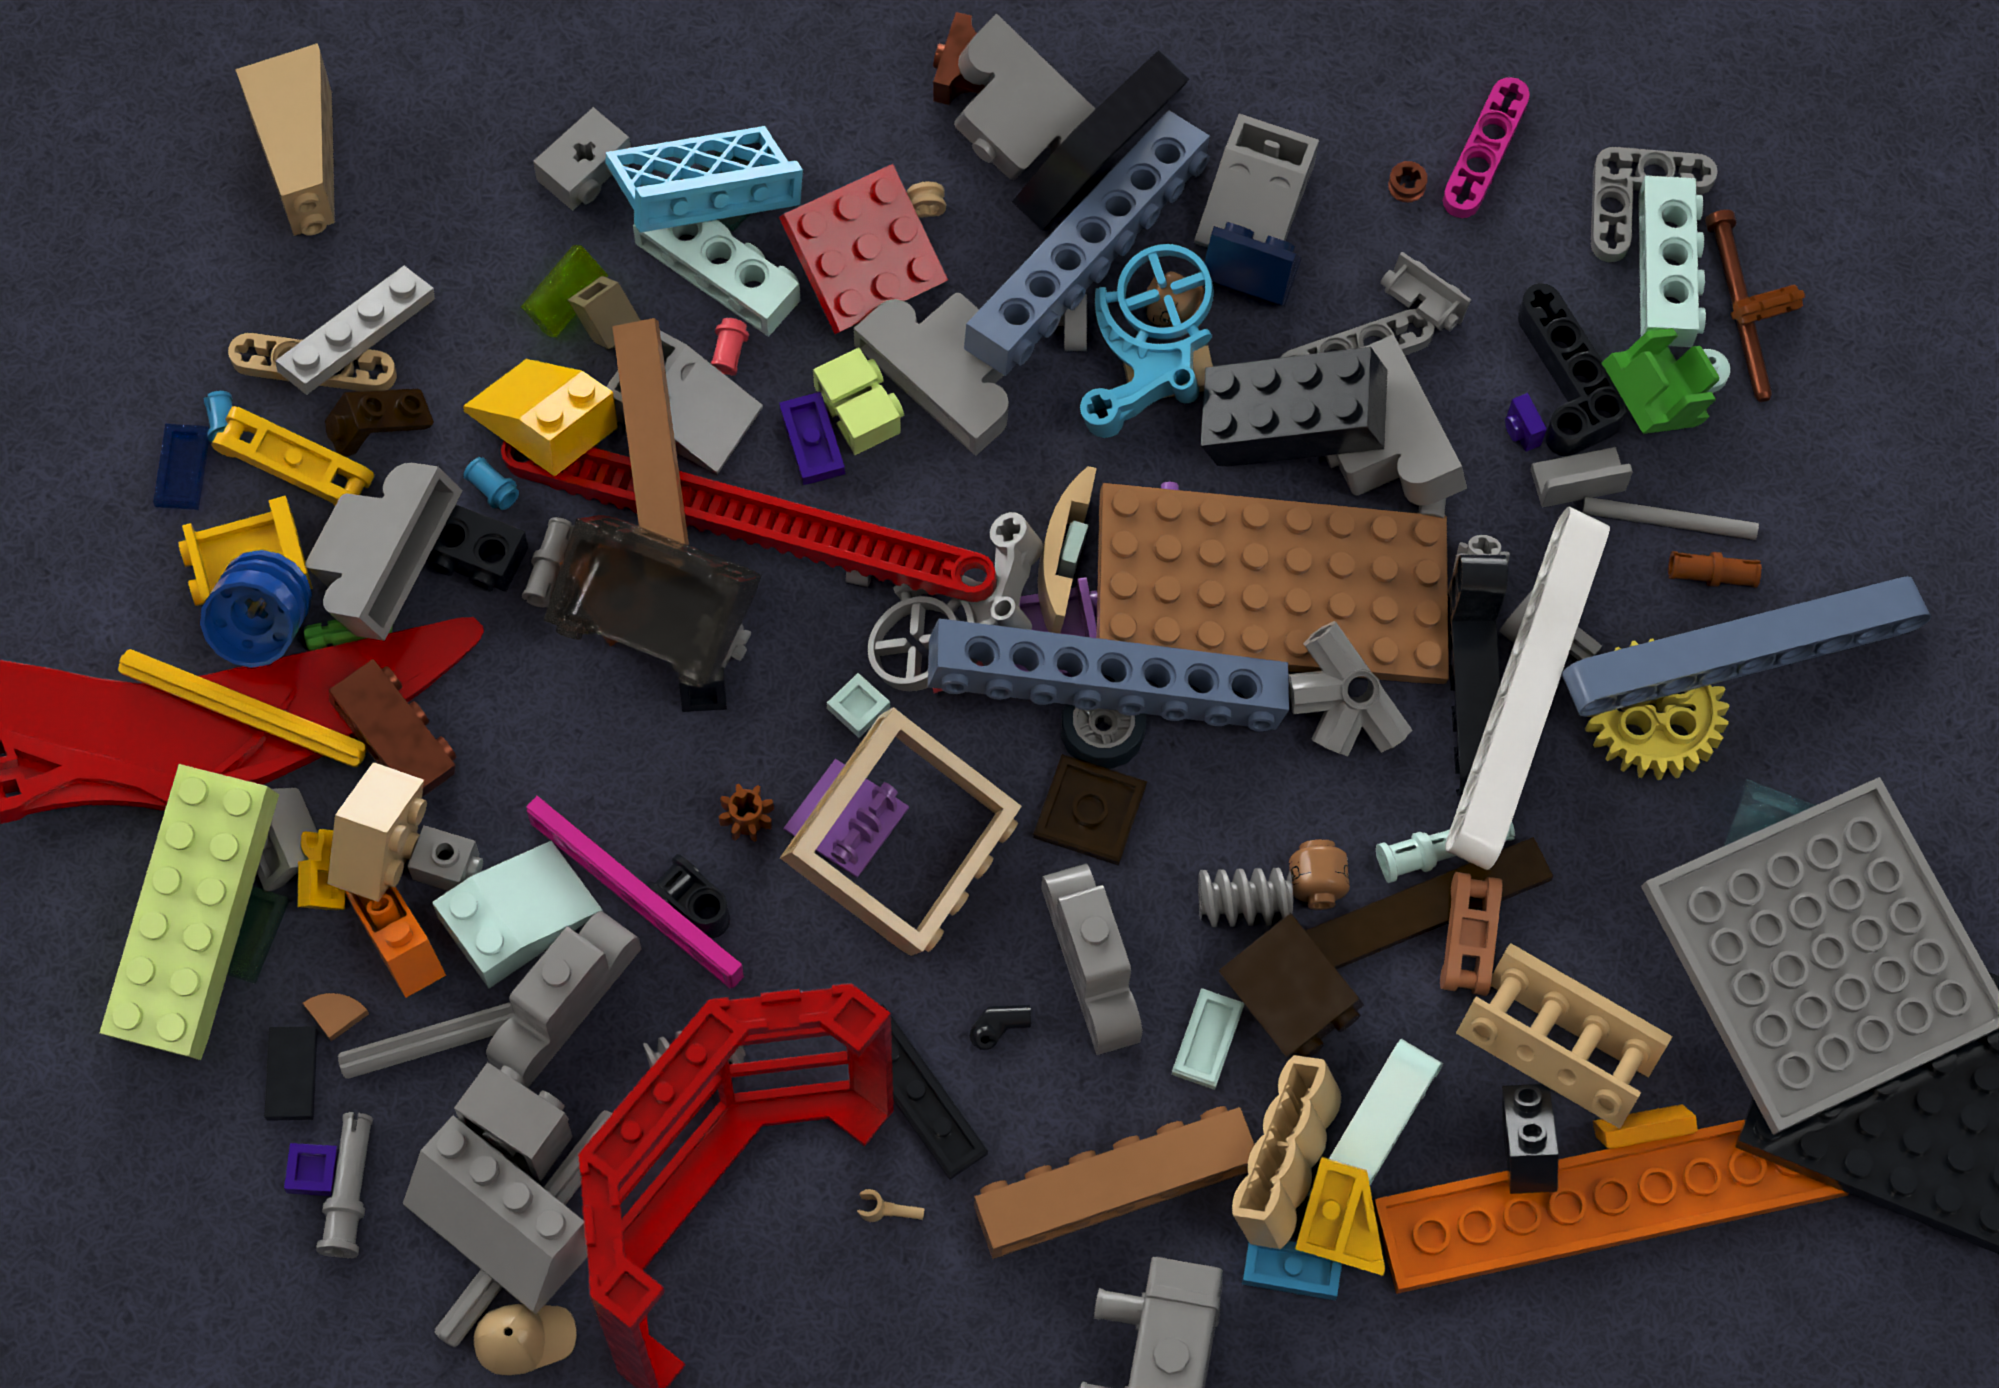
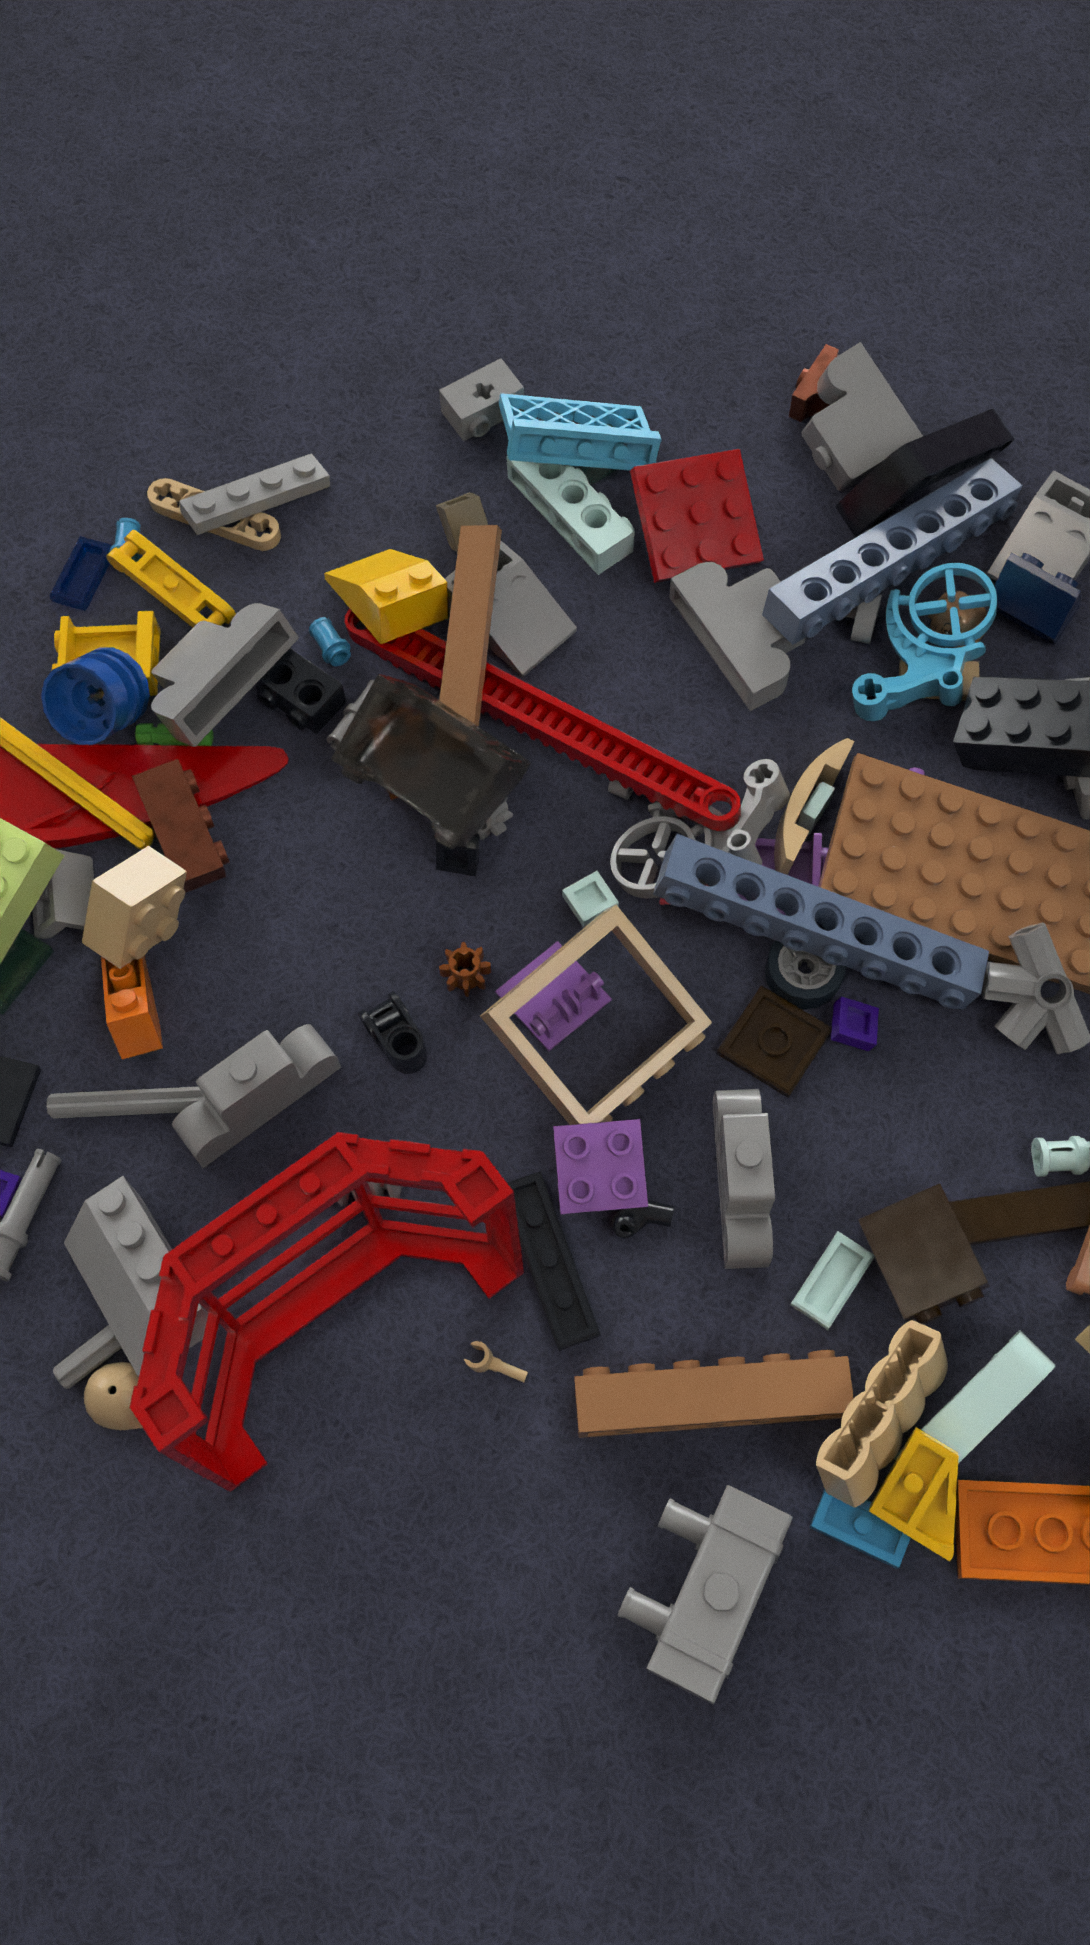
camera: 20 degrees right, 0 degrees up
(294, 123) = (253, 329): tan slope -> none
(313, 873) = (70, 939): yellow plate -> none
(335, 1013) = (59, 1058): medium nougat tile -> none
(373, 412) = (250, 561): dark brown bracket -> none
(444, 859) = (192, 947): light grey brick -> none
(515, 910) = (235, 1002): light aqua slope -> none
(515, 1120) = (171, 1188): light grey brick -> none
(549, 302) = (420, 506): clear neon green plate -> none
(635, 893) = (348, 1017): dark pink tile -> none
(730, 339) = (565, 567): coral pin -> none
(812, 438) = (611, 664): dark purple plate -> none
(854, 394) = (658, 634): yellowish green piece -> none
(927, 199) = (763, 490): tan bush -> none
(944, 982) = (600, 1166): none -> medium lavender hinge
(1168, 771) = (854, 1024): none -> dark purple plate
(1244, 896) = (899, 1156): light grey piece -> none
(1319, 874) = (974, 1152): medium nougat head -> none

